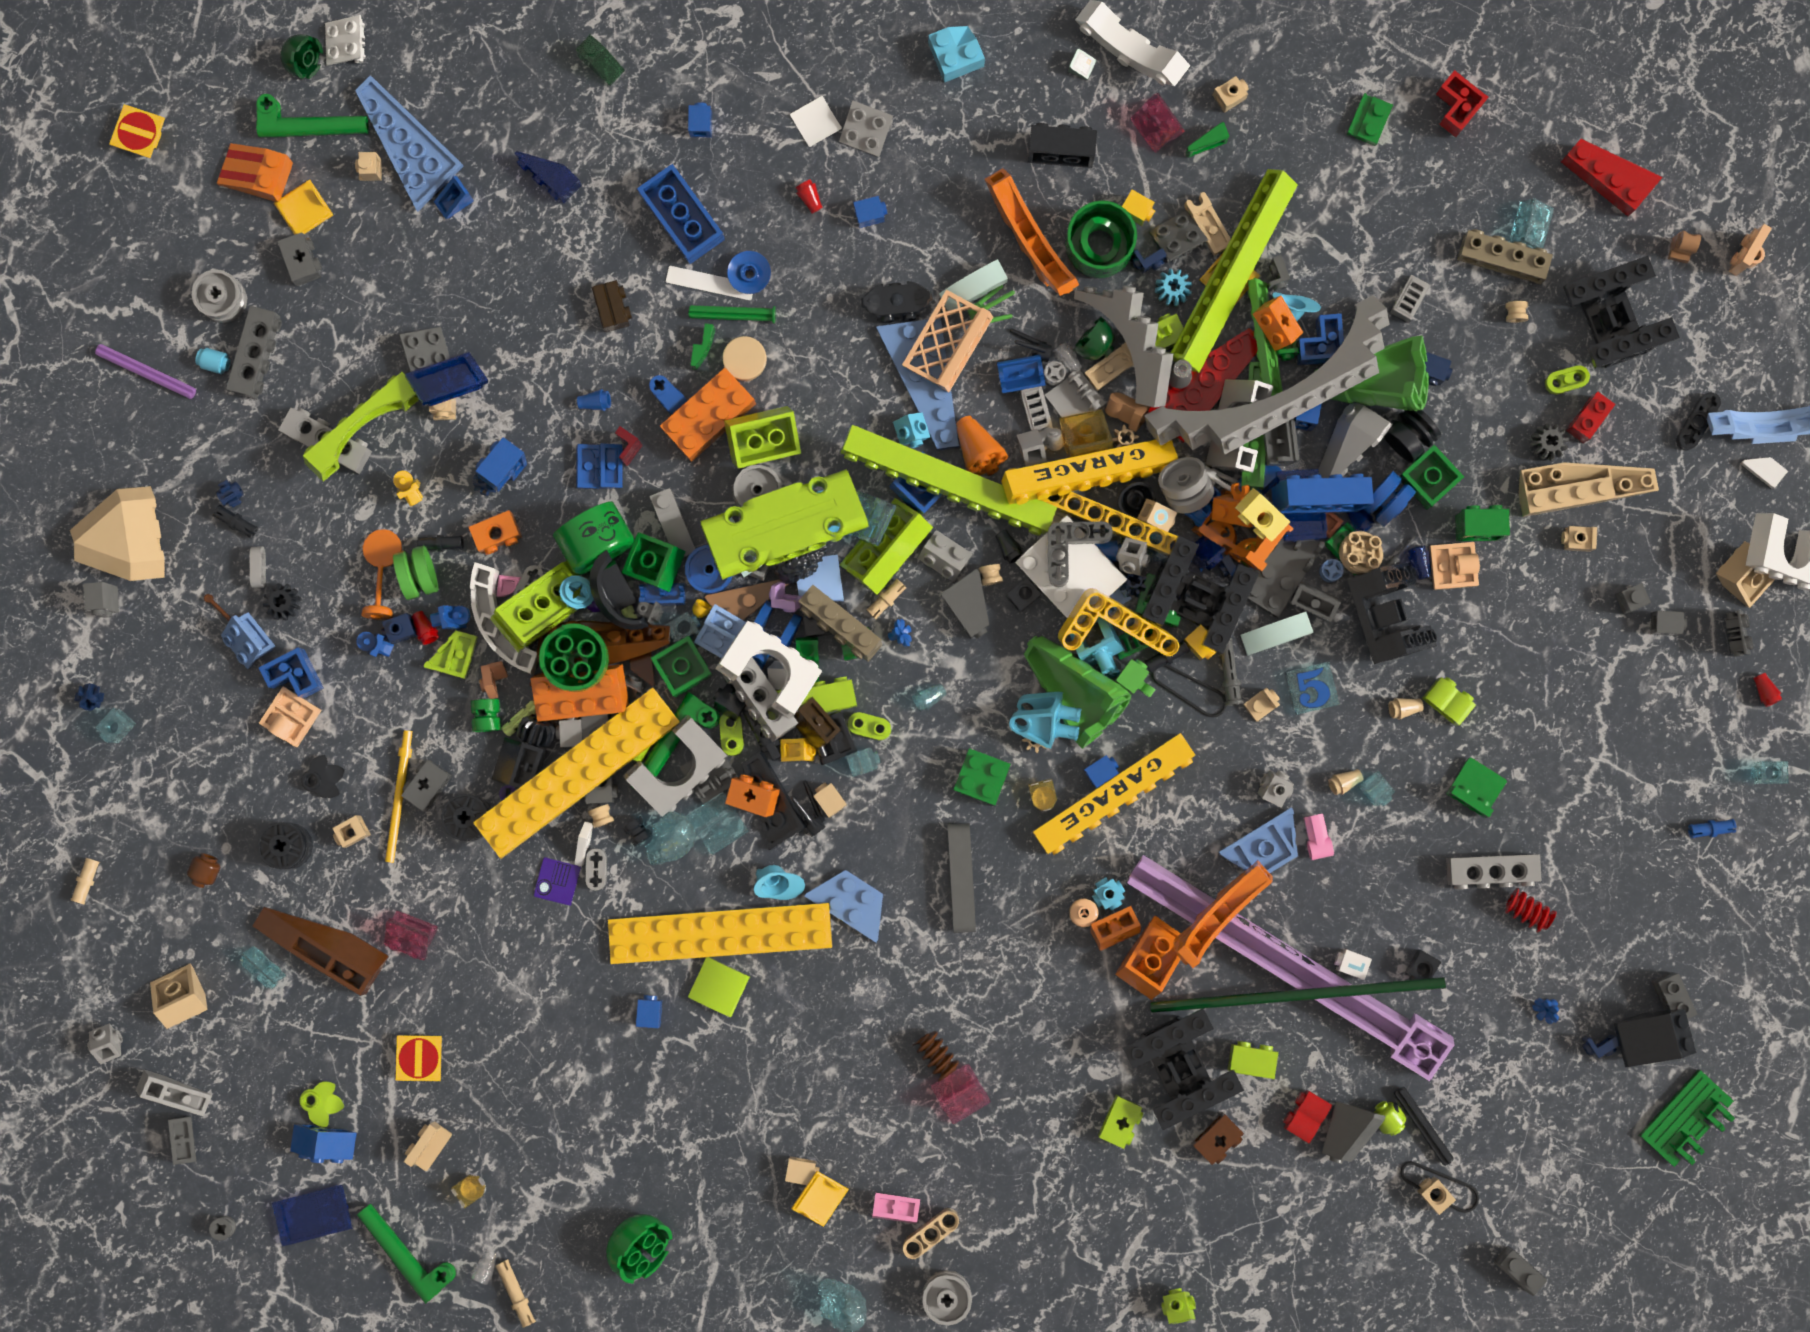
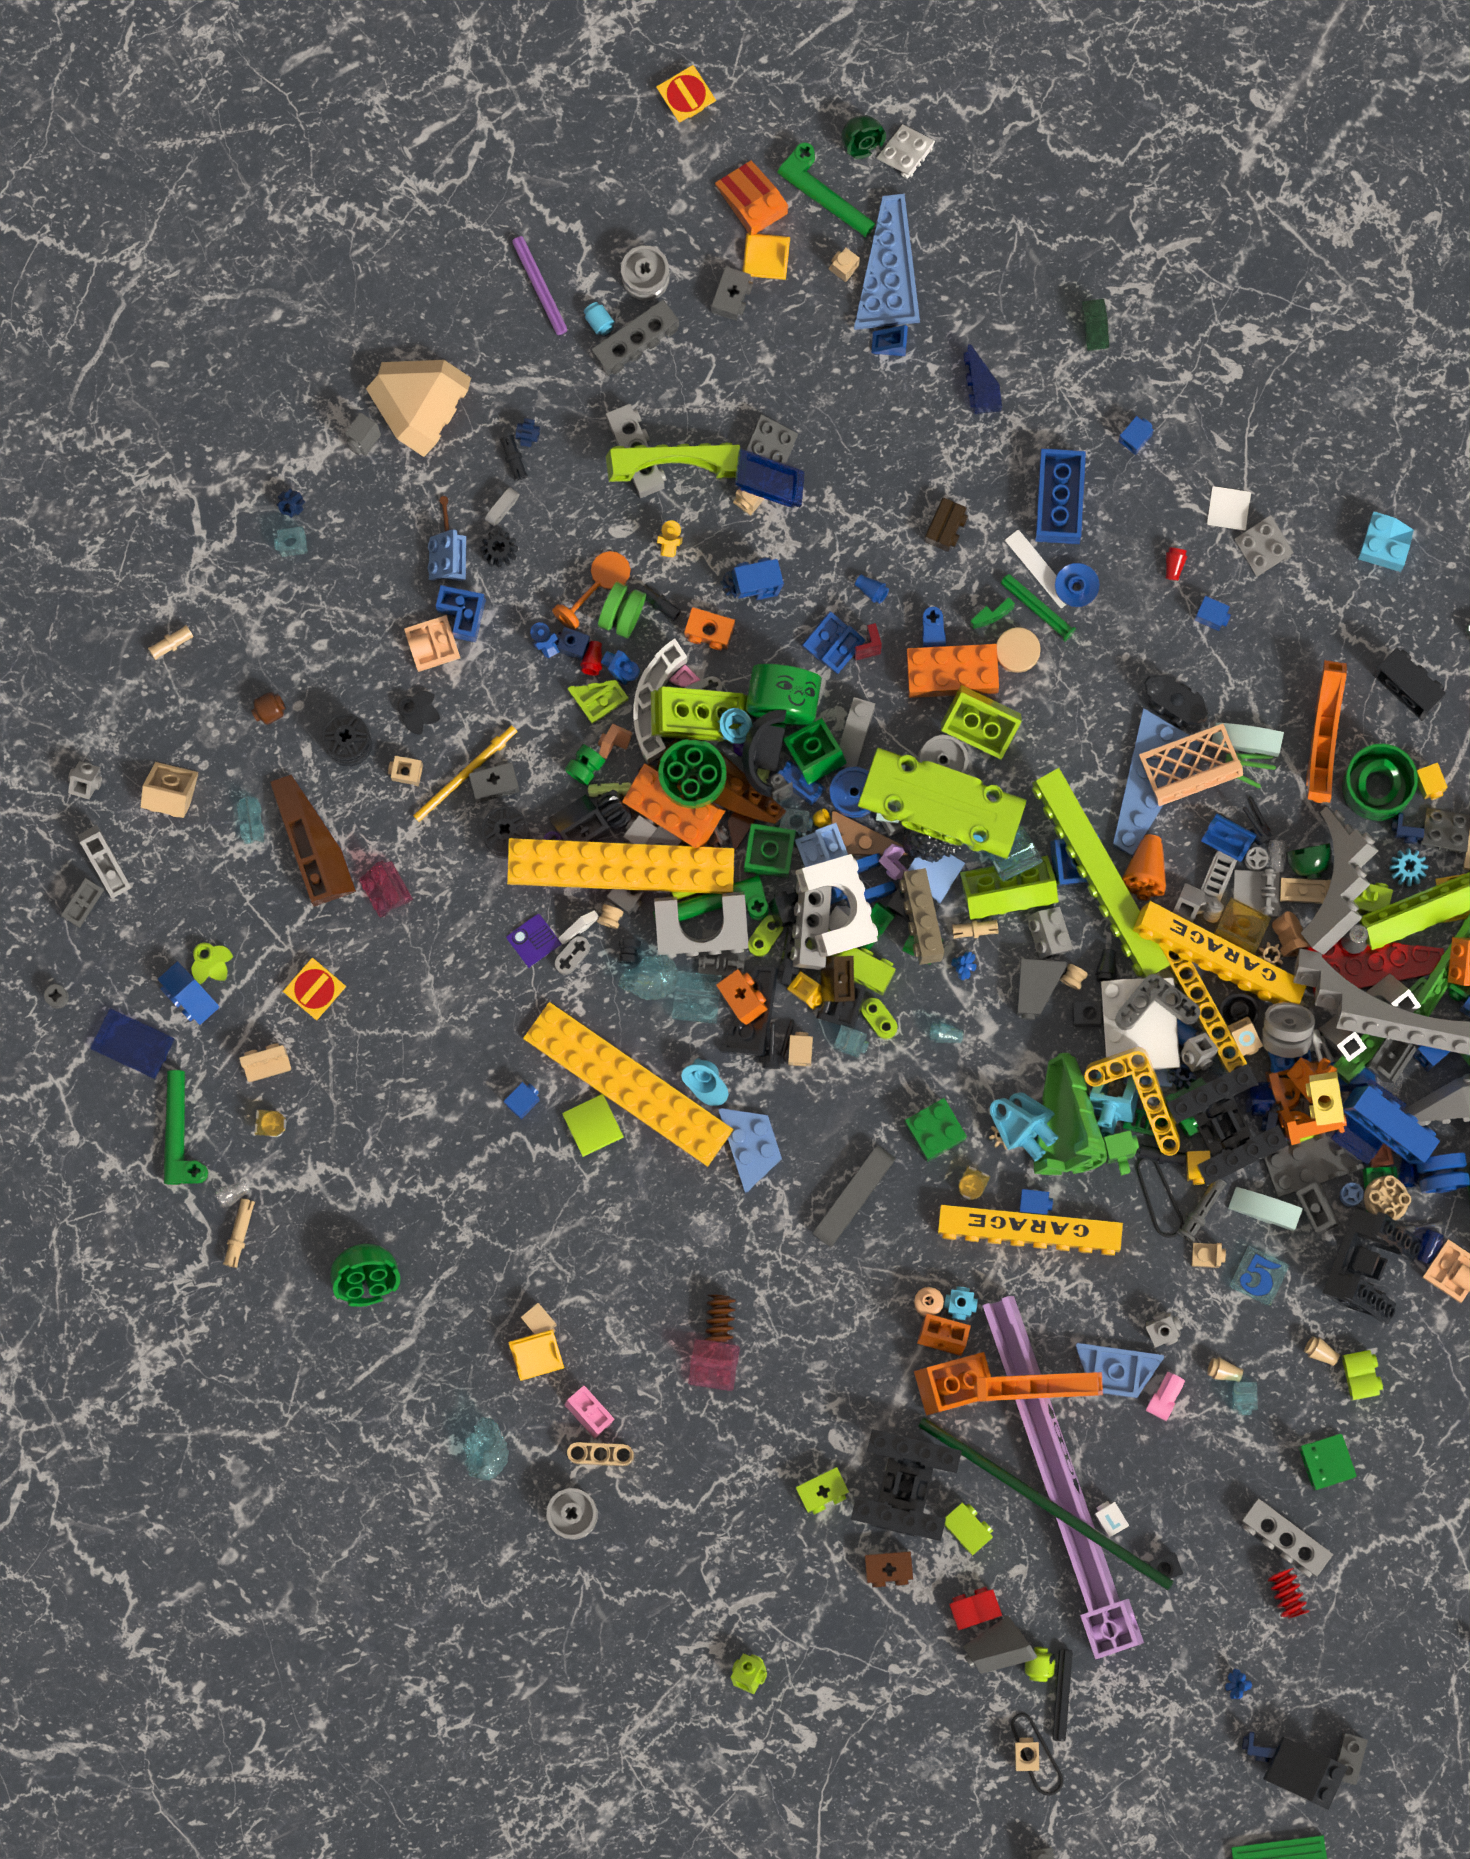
camera: 40 degrees right, 5 degrees down
(912, 430) = (1104, 812): medium azure brick -> none

